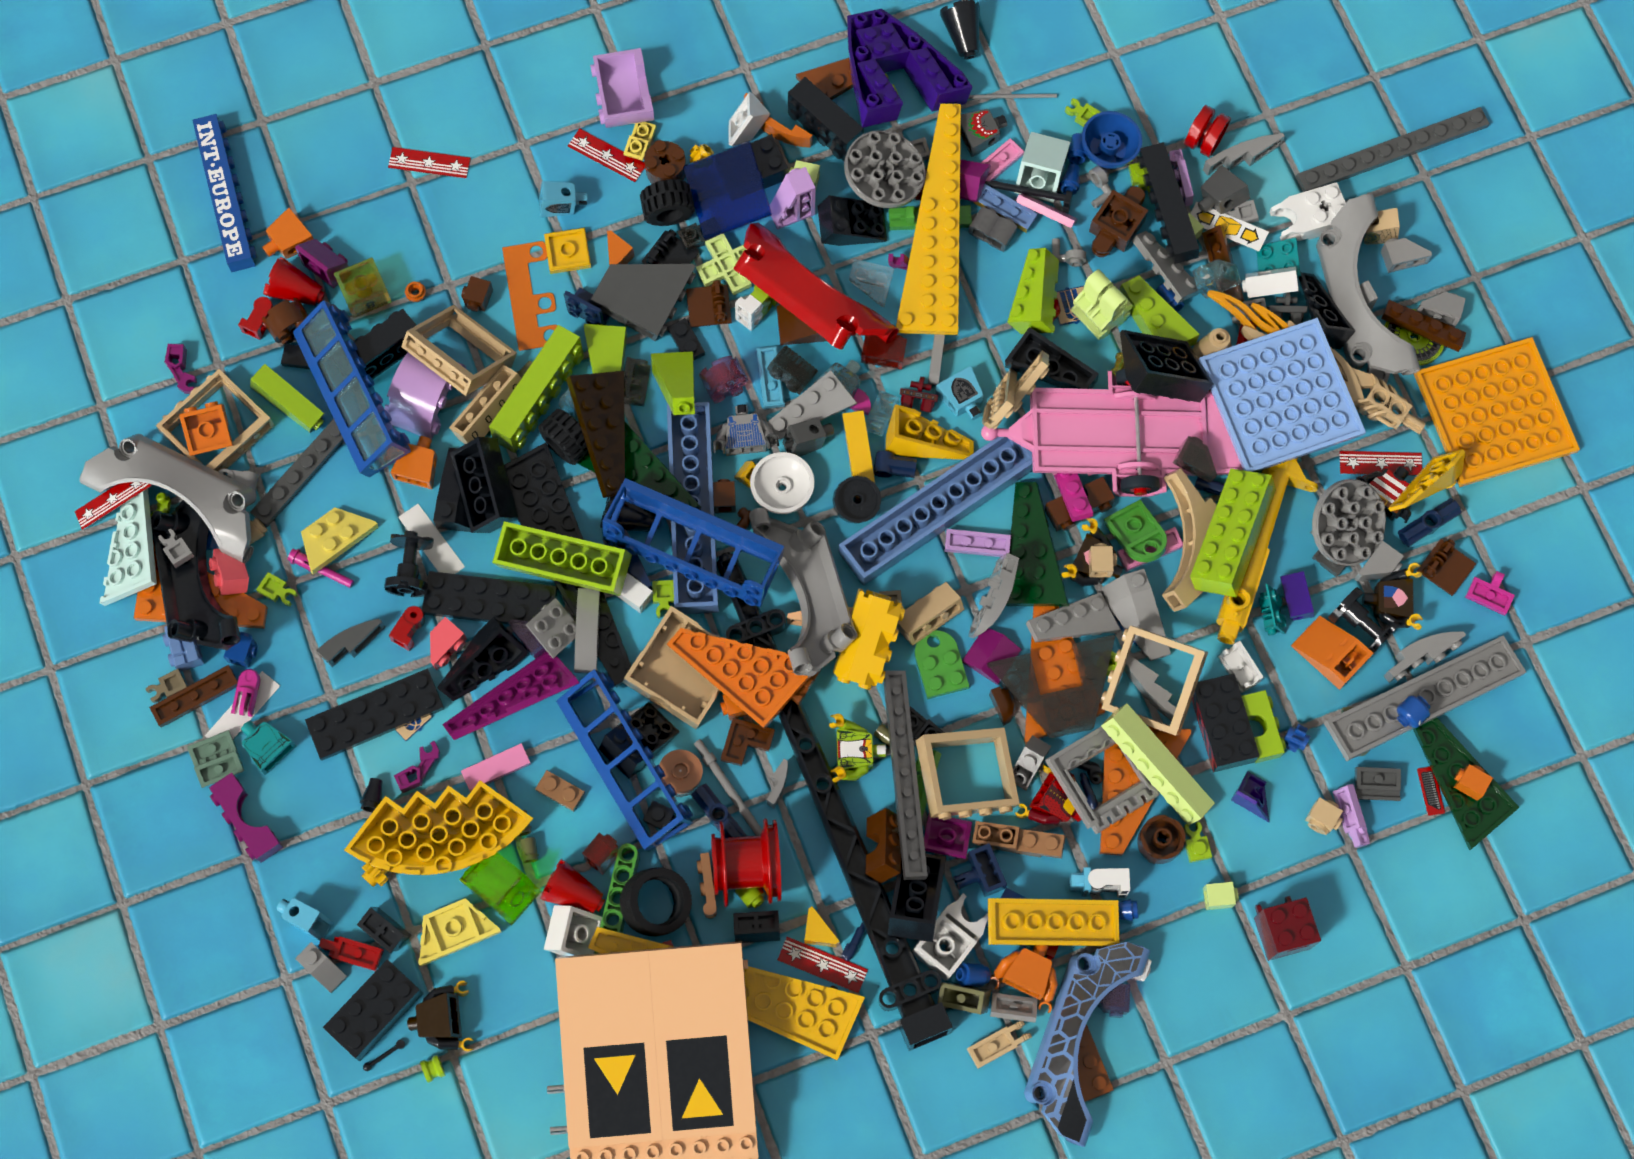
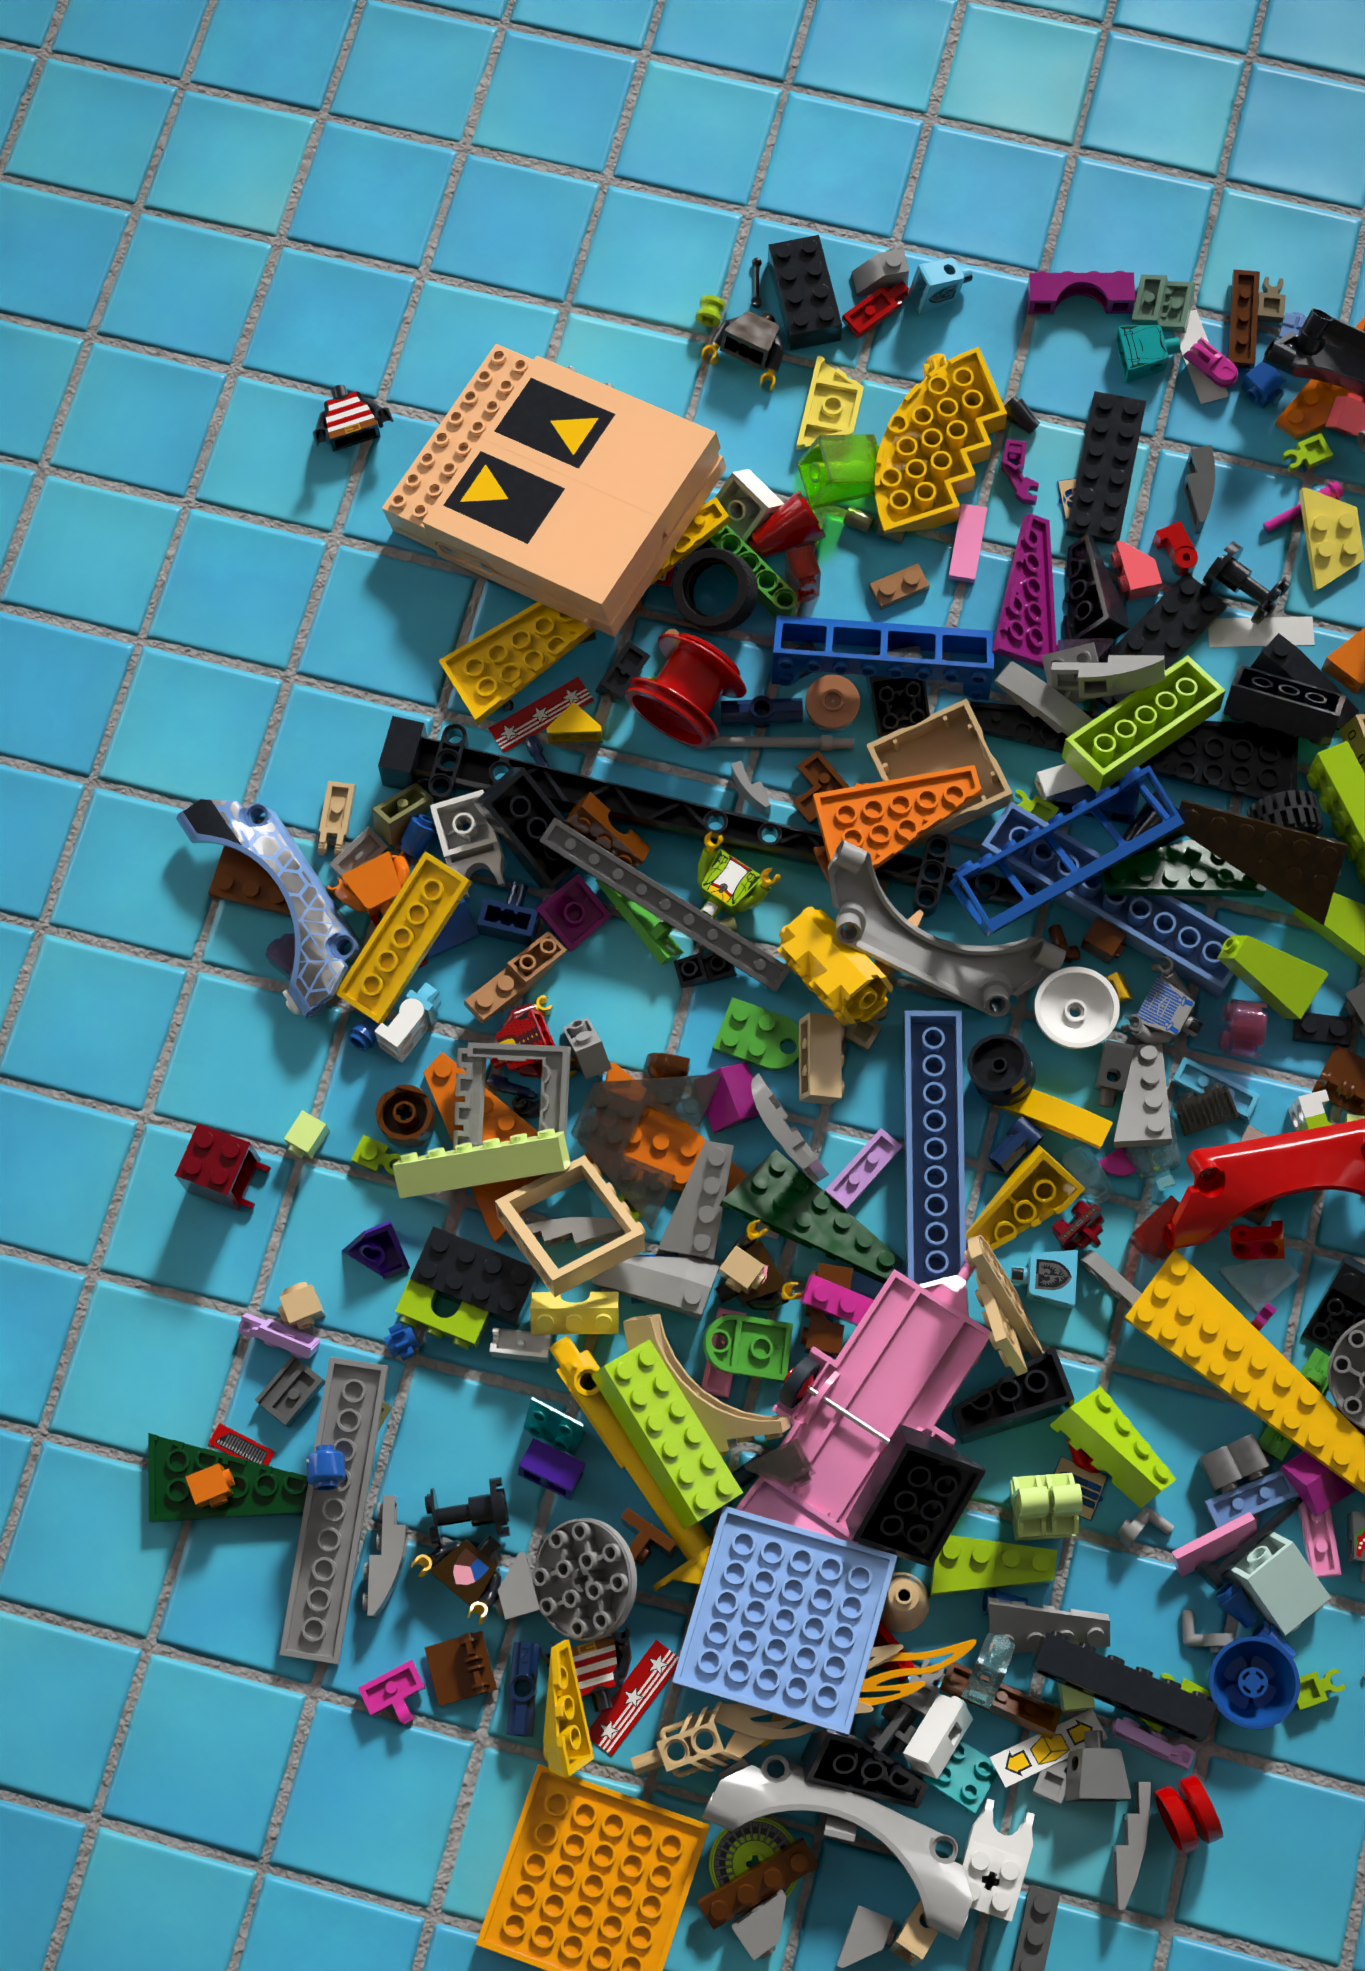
camera: 130 degrees right, 0 degrees up
(383, 929) = (876, 346): black hinge -> none
(540, 589) = (1116, 677): none -> light grey slope
(636, 381) = (1306, 939): clear smoke hinge -> none
(852, 288) = (1258, 1242): none -> red leg
(930, 778) = (659, 990): tan window -> none
(1118, 221) = (1143, 1615): reddish brown brick -> none
(1191, 630) = (593, 1316): none -> light yellow arch
(1296, 510) = (646, 1536): none -> reddish brown bracket
(1332, 651) = (463, 1454): orange slope -> none

